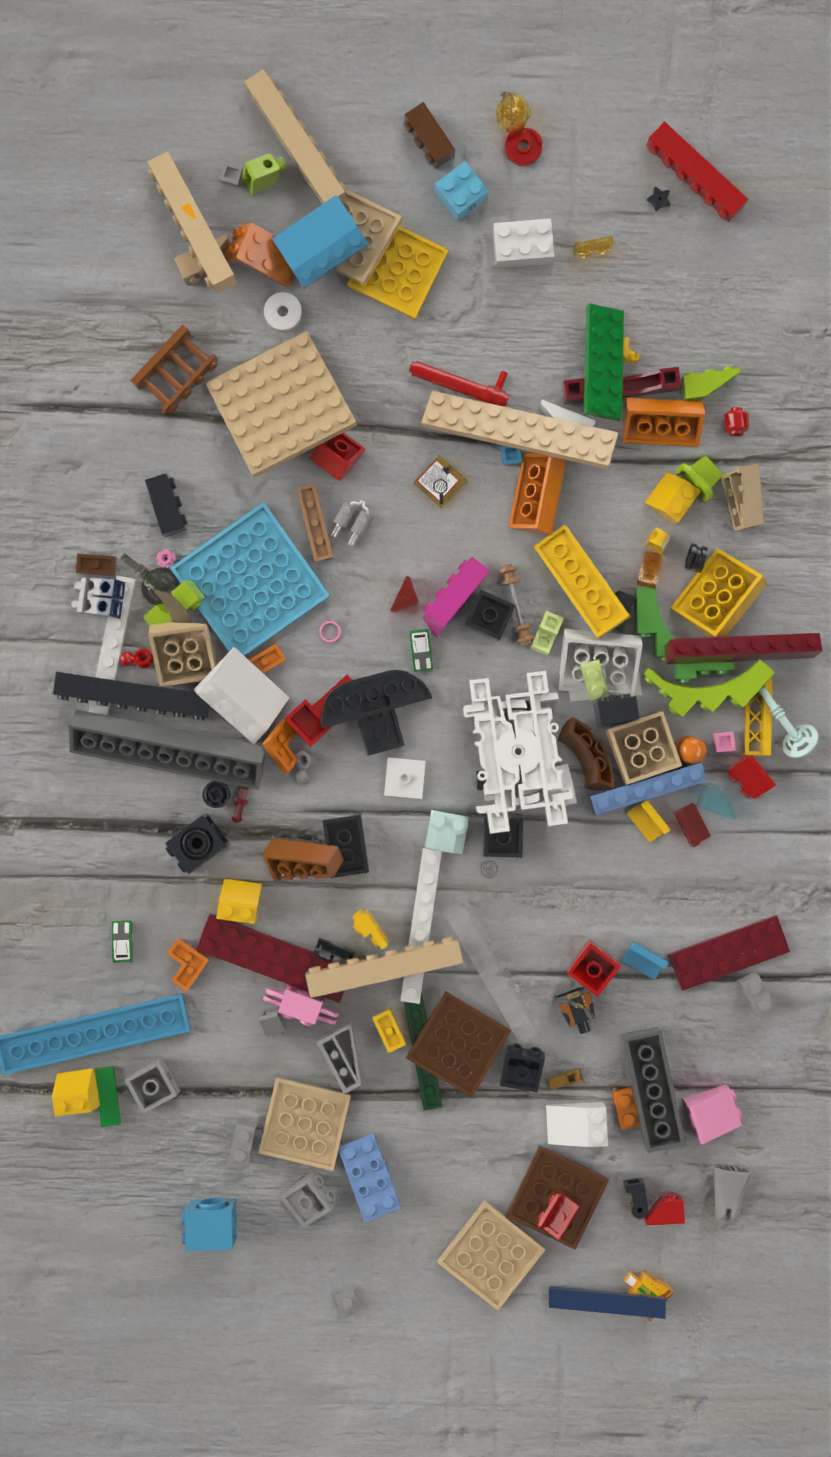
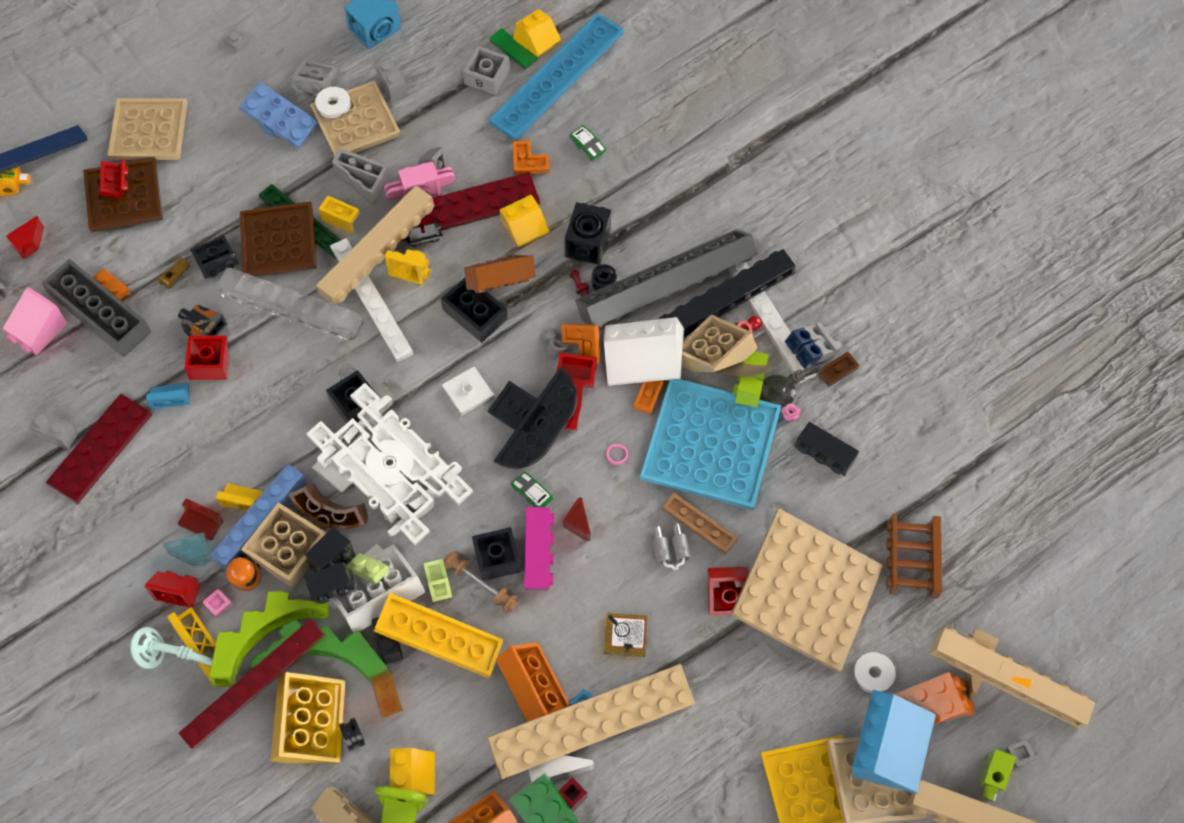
camera: 145 degrees right, 25 degrees down
(308, 1165) = (333, 94): none -> white tile
(446, 832) = (402, 376): light aqua slope -> none
(486, 394) = (644, 736): red cylinder -> none
(577, 1124) = (140, 249): white slope -> none
(634, 681) = (329, 583): none -> black slope
(638, 1203) = (57, 234): black leg -> none
(657, 541) = (397, 722): yellow leg -> none

